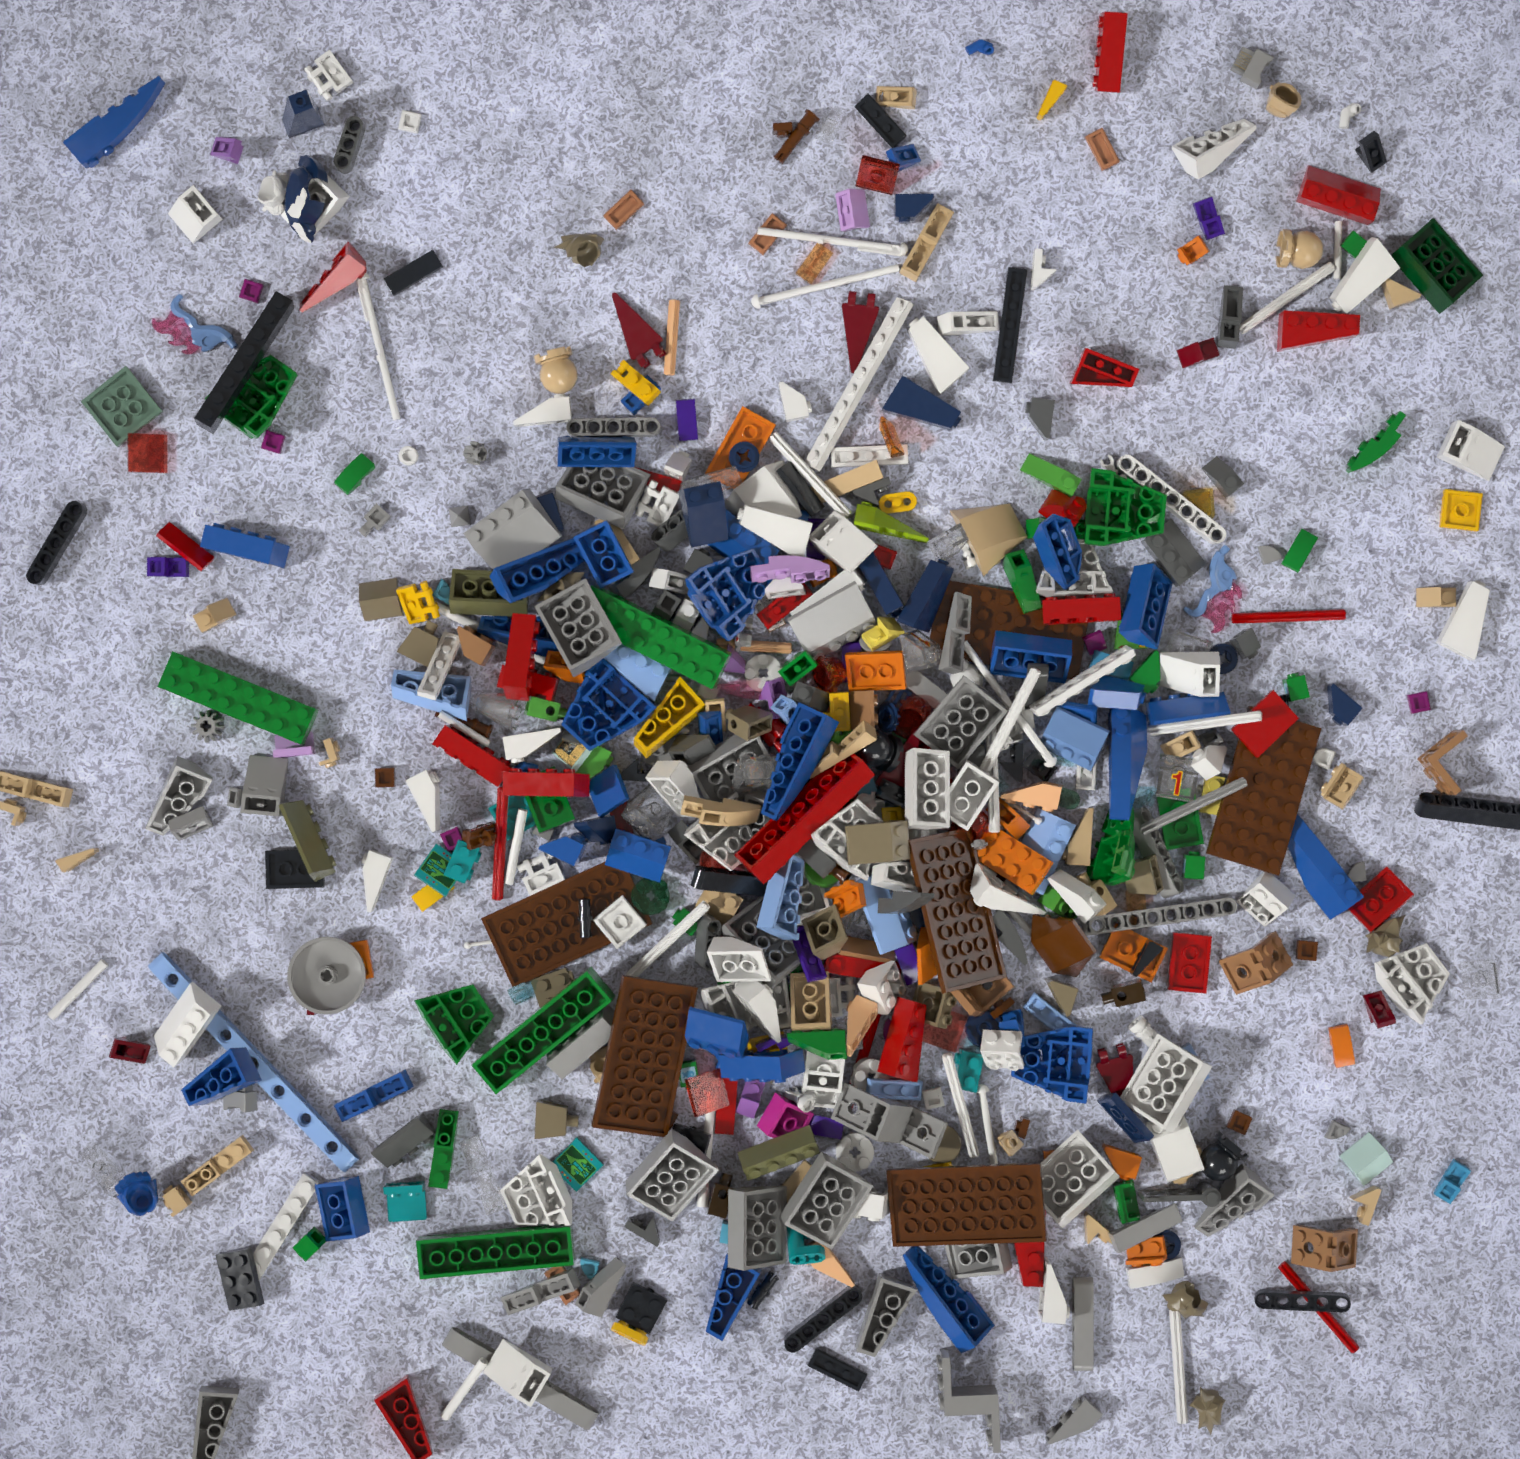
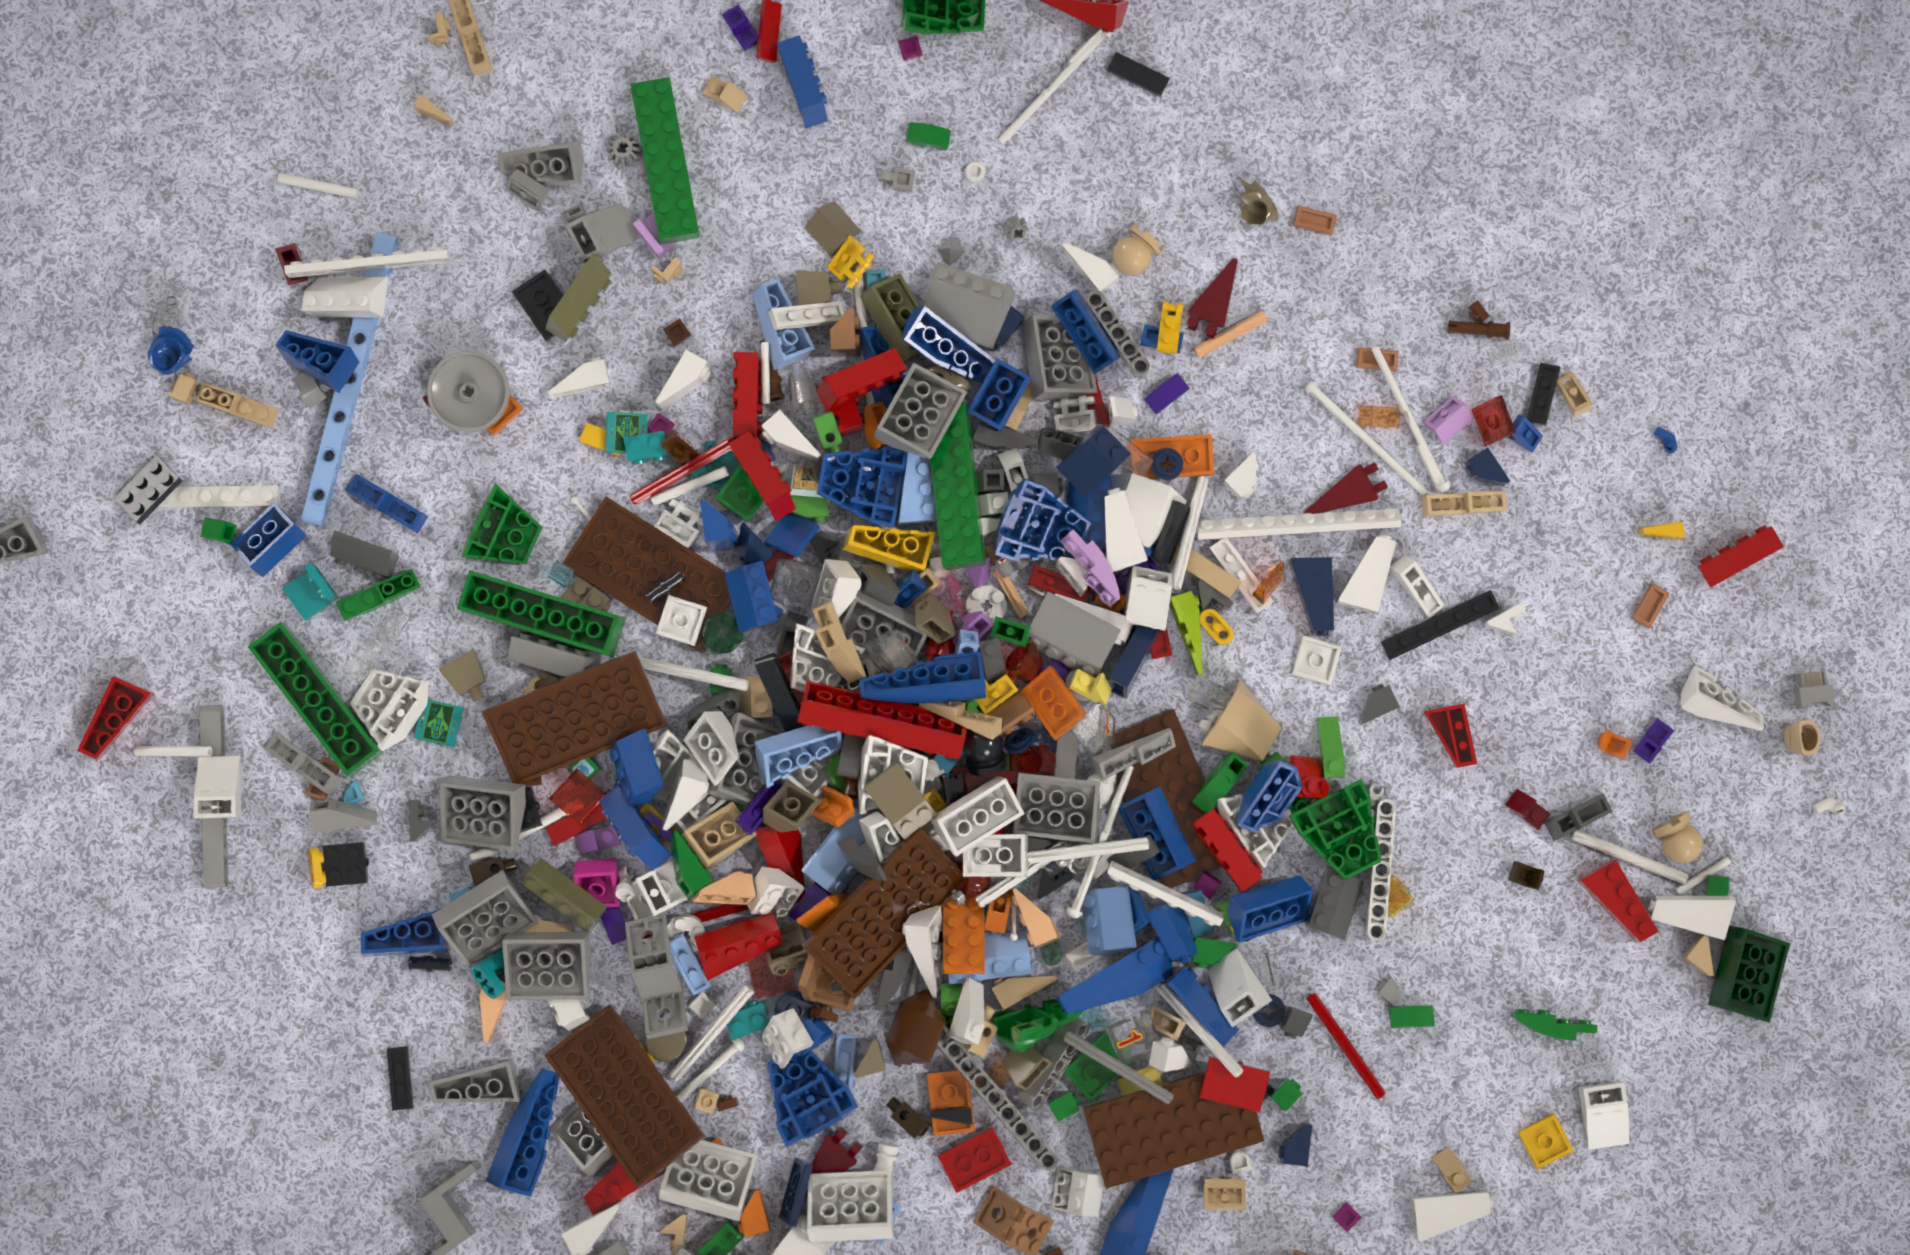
camera: 55 degrees right, 5 degrees down
(172, 983) = (358, 263): none -> white plate
(819, 1327) = (429, 1030): black beam -> none
(835, 994) = (743, 853): white plate -> none
(862, 1143) = (619, 969): white plate -> none
(866, 950) = (797, 855): medium nougat tile -> none
(927, 596) = (1149, 706): dark blue slope -> none
(974, 441) = (1316, 660): none -> white tile
(1035, 765) = (1063, 900): black slope -> none
(1220, 594) = (1325, 971): piece -> none
(1222, 476) = (1431, 903): dark grey slope -> none
(1249, 388) = (1526, 875): none -> dark brown bracket
(1339, 195) = (1752, 844): red slope -> none
(1371, 151) = (1810, 848): black slope -> none

